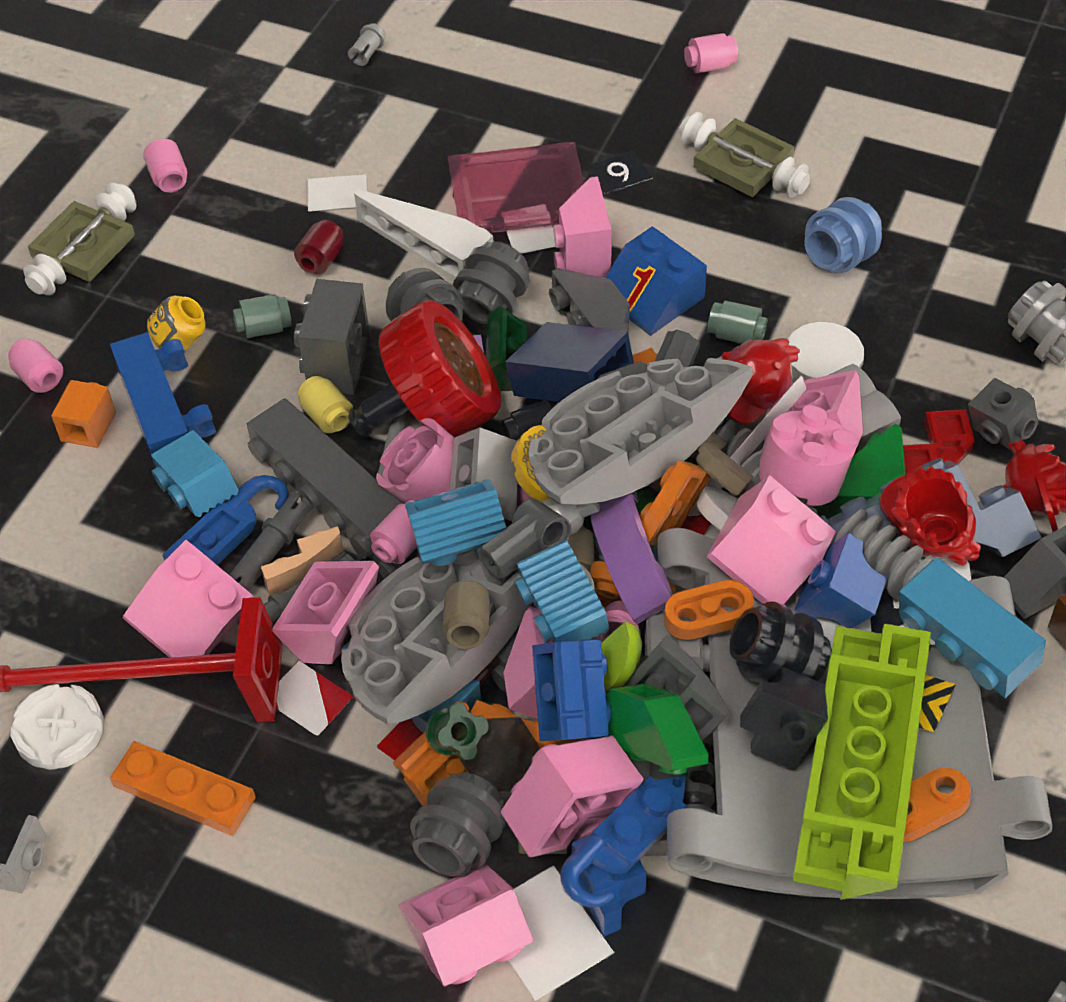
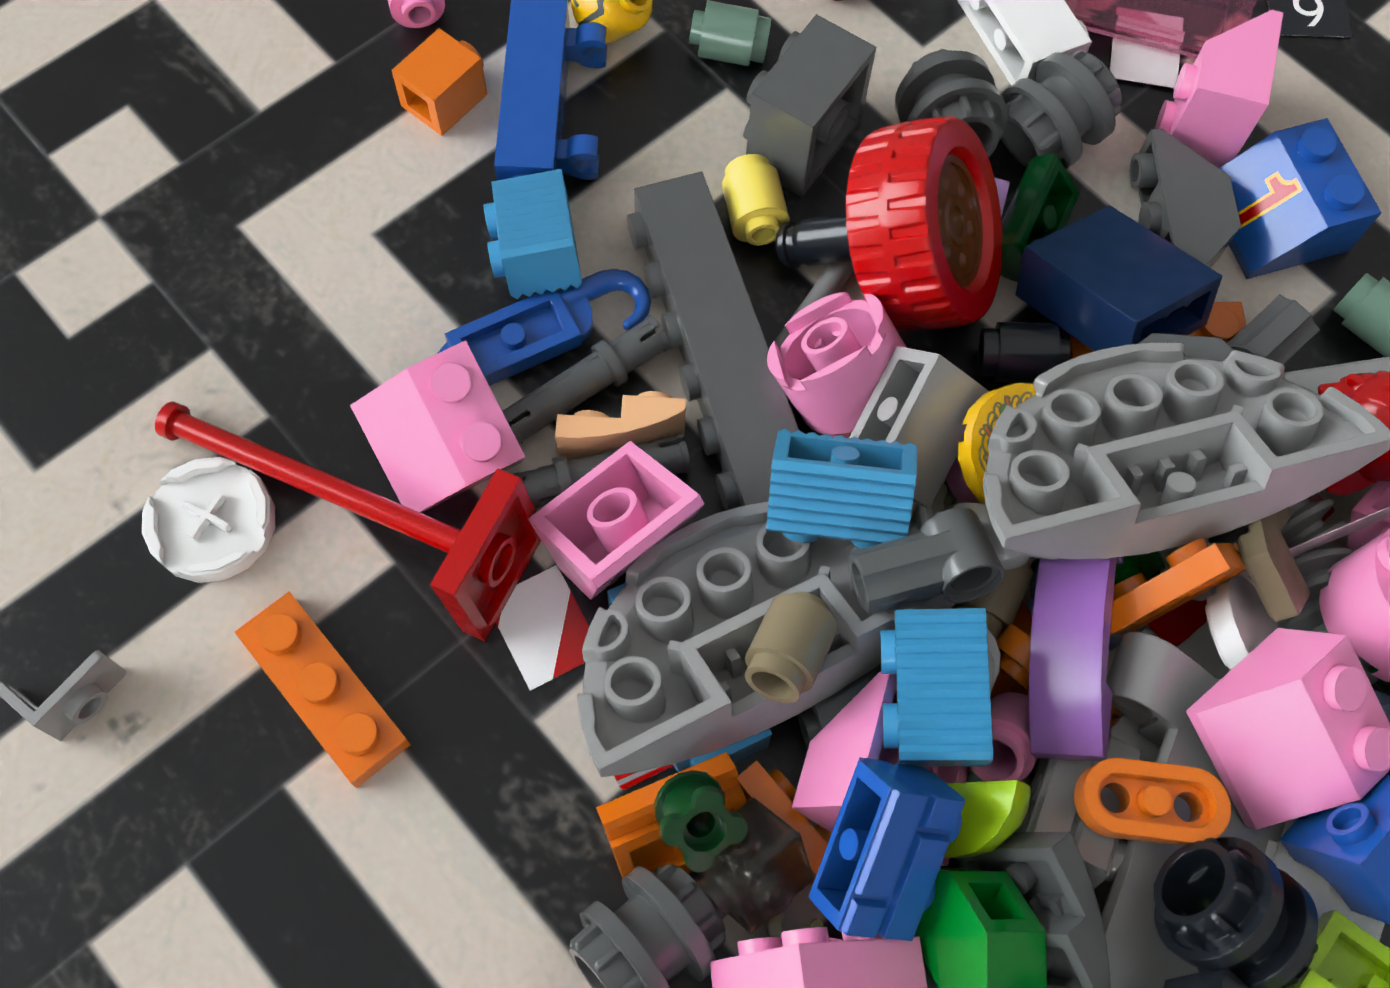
camera: 20 degrees right, 15 degrees up
(394, 537) = (748, 454): bright pink brick -> none

